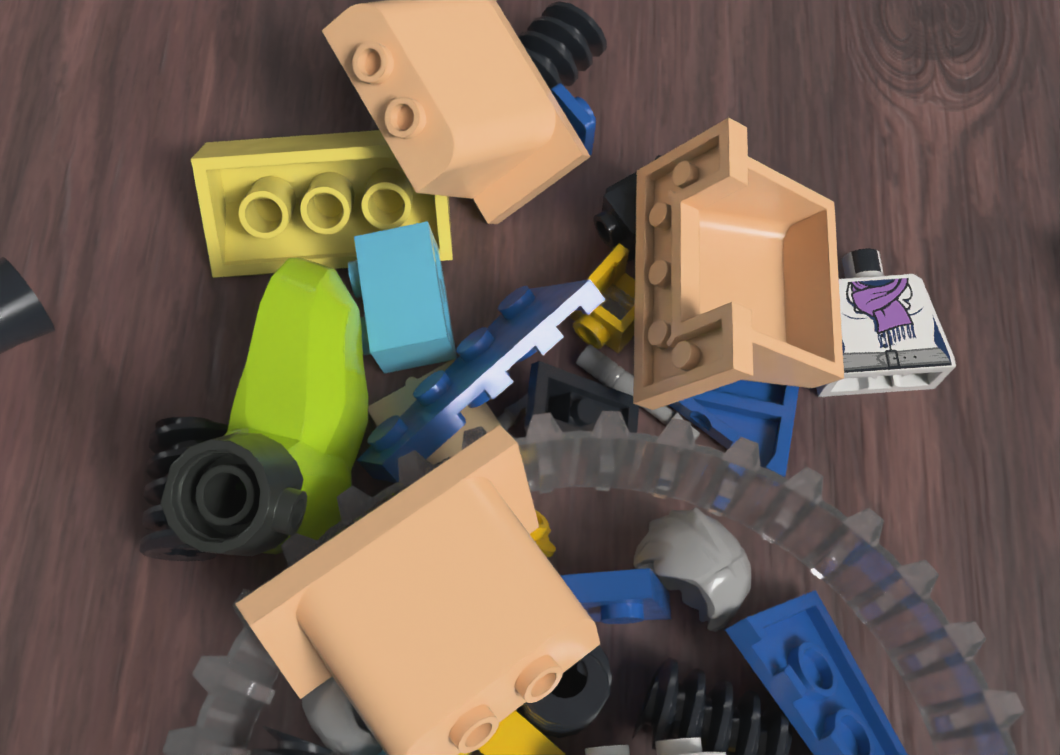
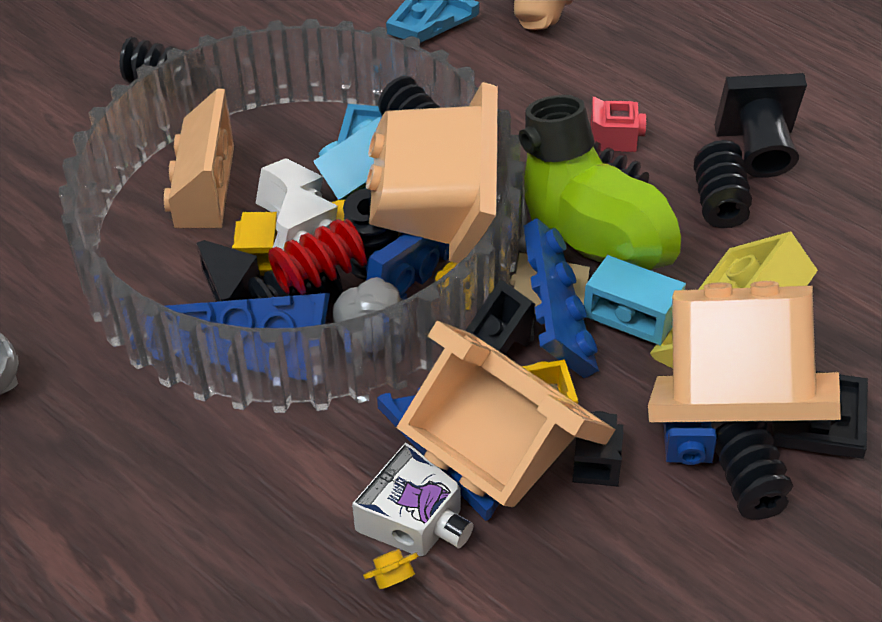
camera: 130 degrees right, 20 degrees down
(61, 540) = (617, 124): none -> coral window
(107, 331) = (722, 184): none -> black piece
(705, 674) = (316, 255): none -> red piece
(961, 280) = (391, 568): none -> yellow plate

